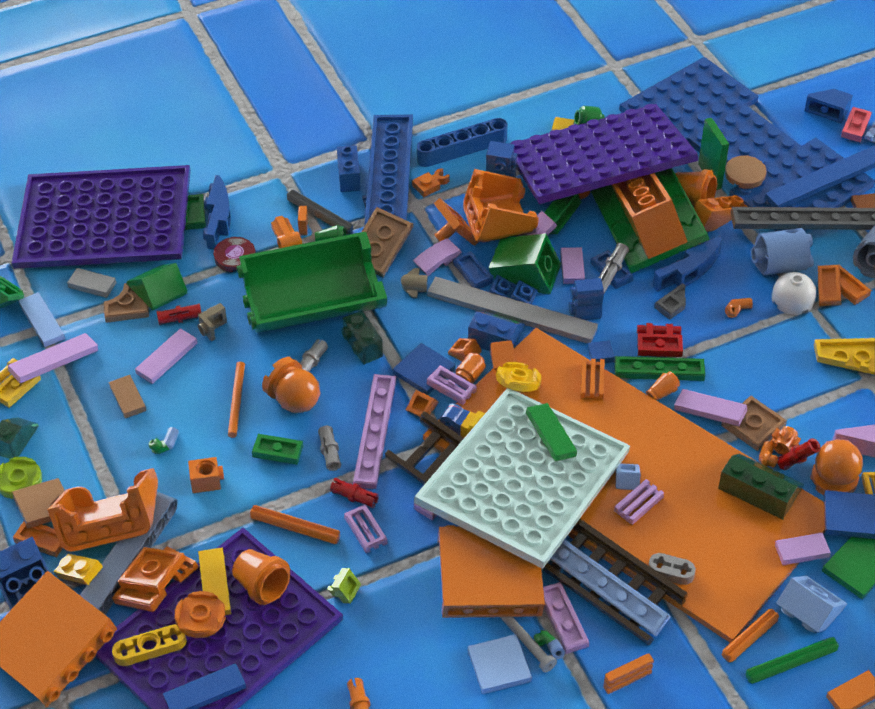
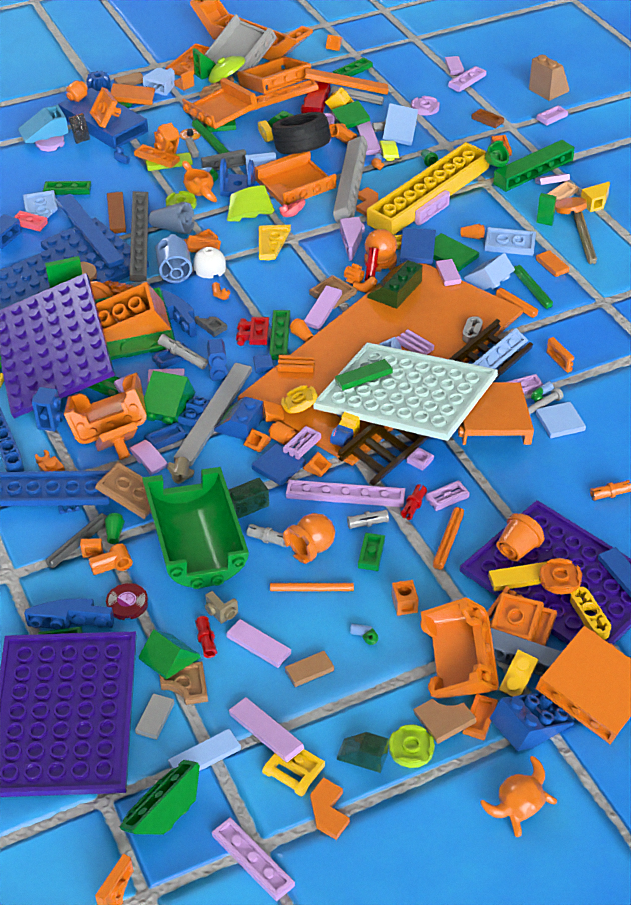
camera: 90 degrees left, 5 degrees down
(345, 585) = (509, 500): lime tile -> none
(348, 168) = (26, 516): blue brick -> none

